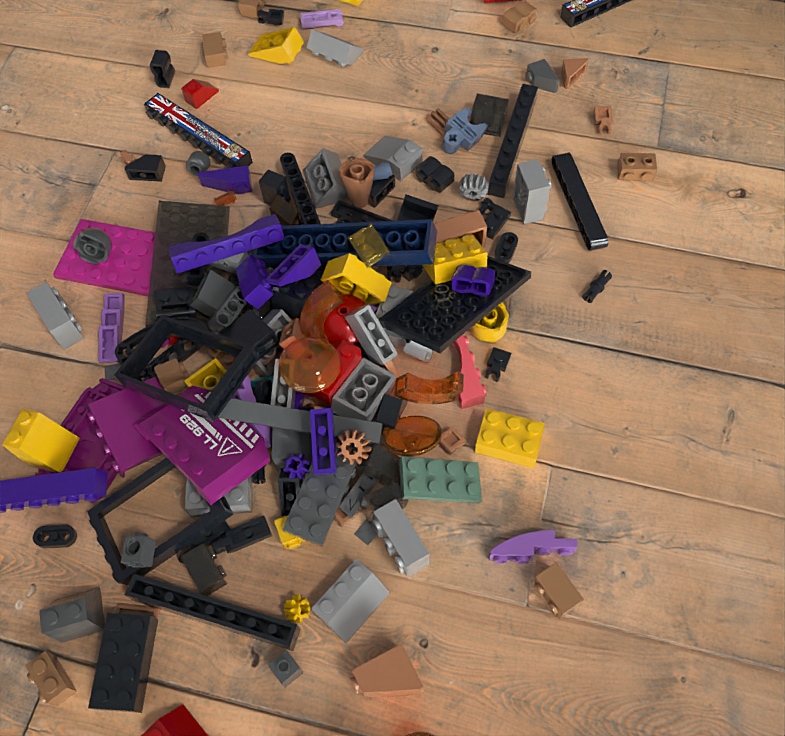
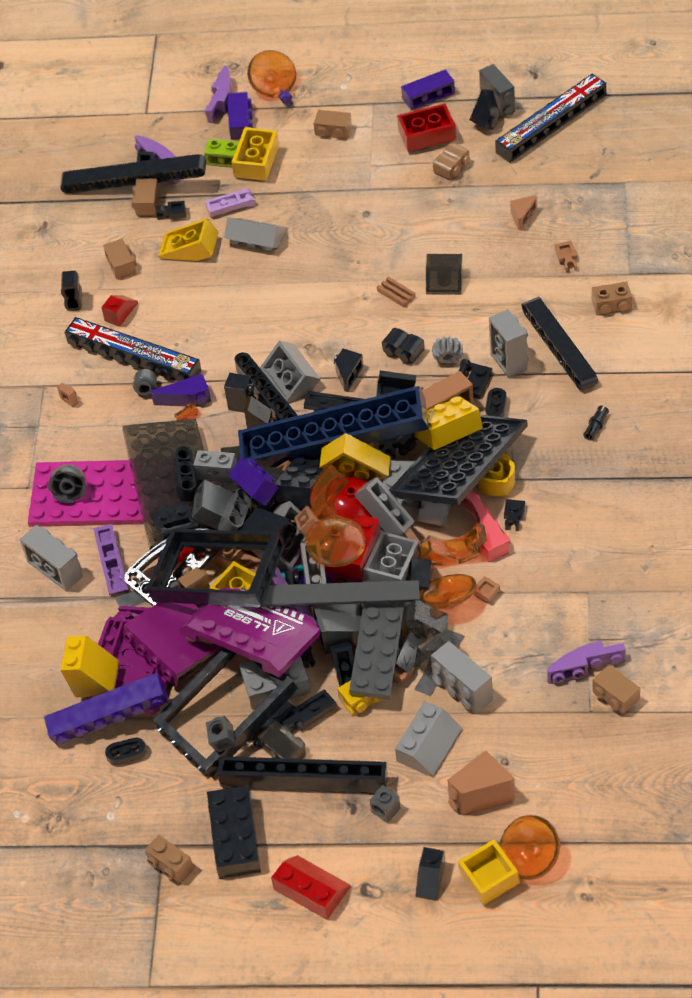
camera: 10 degrees left, 10 degrees down
(73, 616) = (175, 805): dark grey slope -> none
(146, 168) = (89, 398): black slope -> none
(195, 254) = (187, 466): dark purple arch -> none
(297, 266) = (295, 456): dark purple slope -> none
(297, 609) = (380, 753): yellow gear -> none
(301, 468) = (344, 628): dark purple gear -> none
(323, 441) = (369, 603): dark purple brick -> none
(347, 450) = (392, 609): nougat gear -> none
(357, 180) = (327, 366): nougat cone -> none
(369, 245) = (361, 423): clear yellow plate -> none
(382, 171) = (346, 353): sand blue cone -> none
(400, 153) = (355, 334): light grey slope -> none
(440, 480) = (485, 622): sand green plate -> none
(461, 132) = (420, 297): sand blue piece -> none
(473, 280) = (470, 437): dark purple brick -> none
(509, 438) = (541, 575): yellow brick -> none
(512, 141) = (476, 295): black brick -> none
(542, 76) = (491, 222): dark grey slope -> none

